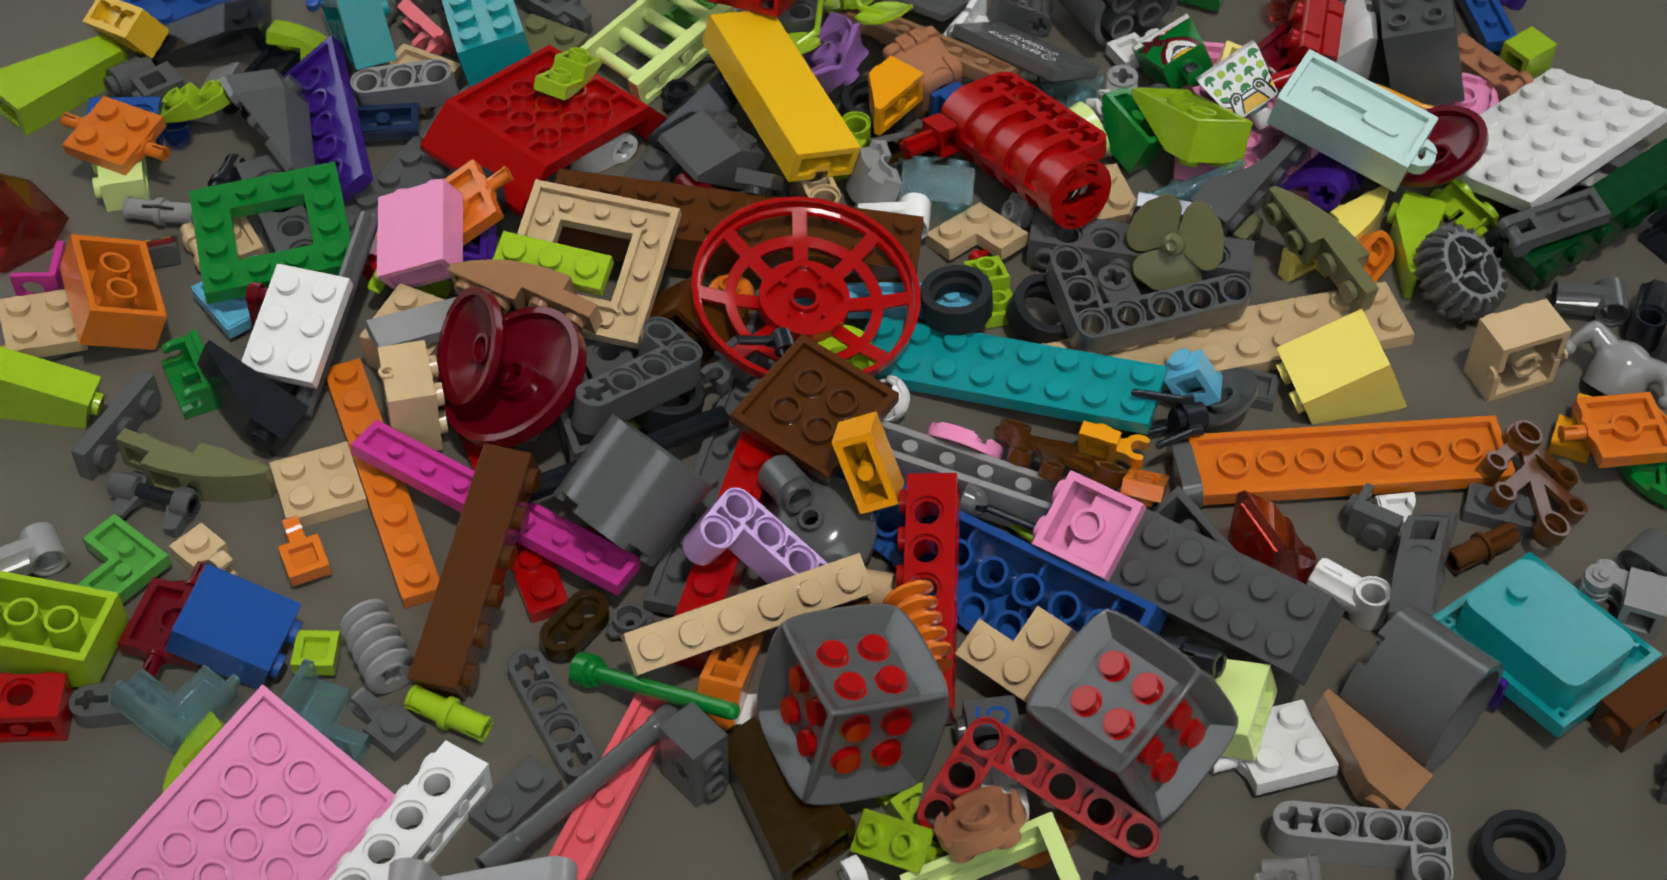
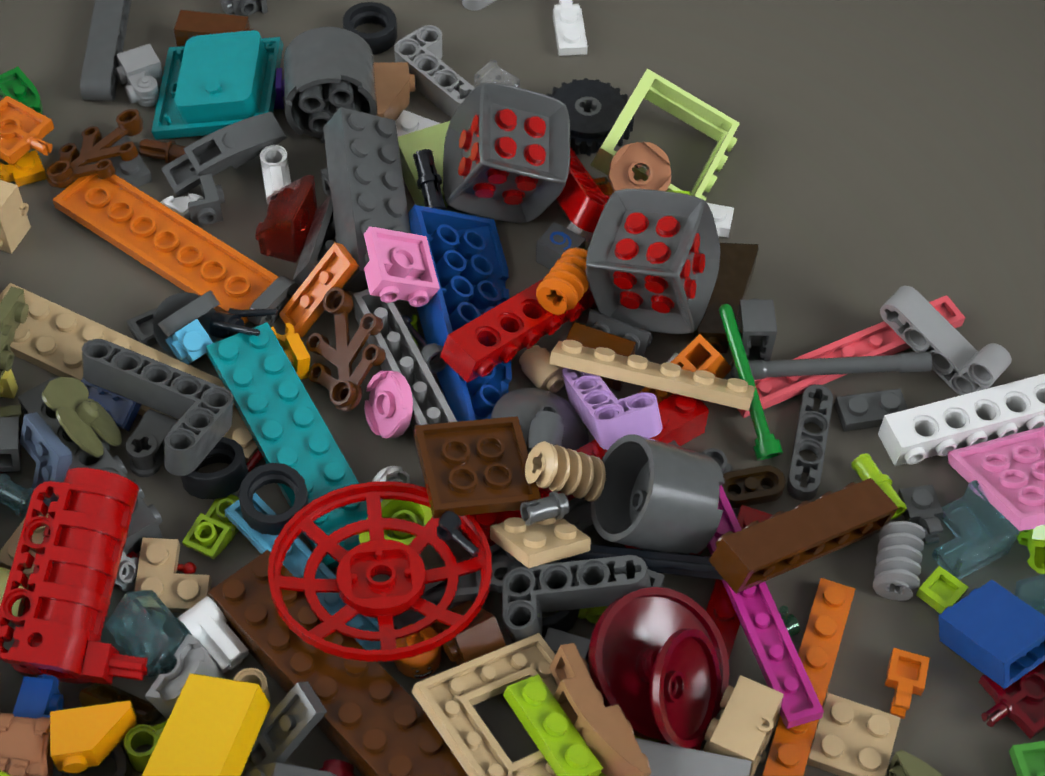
camera: 140 degrees left, 5 degrees up
(203, 546) = (978, 744): tan plate -> none
(445, 525) = (790, 621): none -> clear green hand
(701, 406) = (541, 541): none -> tan plate
(715, 417) = (549, 507): none -> dark grey pin
(727, 443) = (565, 471): none -> tan piece
(868, 462) = (487, 392): light orange brick -> none
(1020, 662) = (507, 254): tan brick -> none
(1221, 386) = (189, 313): none -> dark grey beam
(1340, 372) = (98, 282): light yellow slope -> none

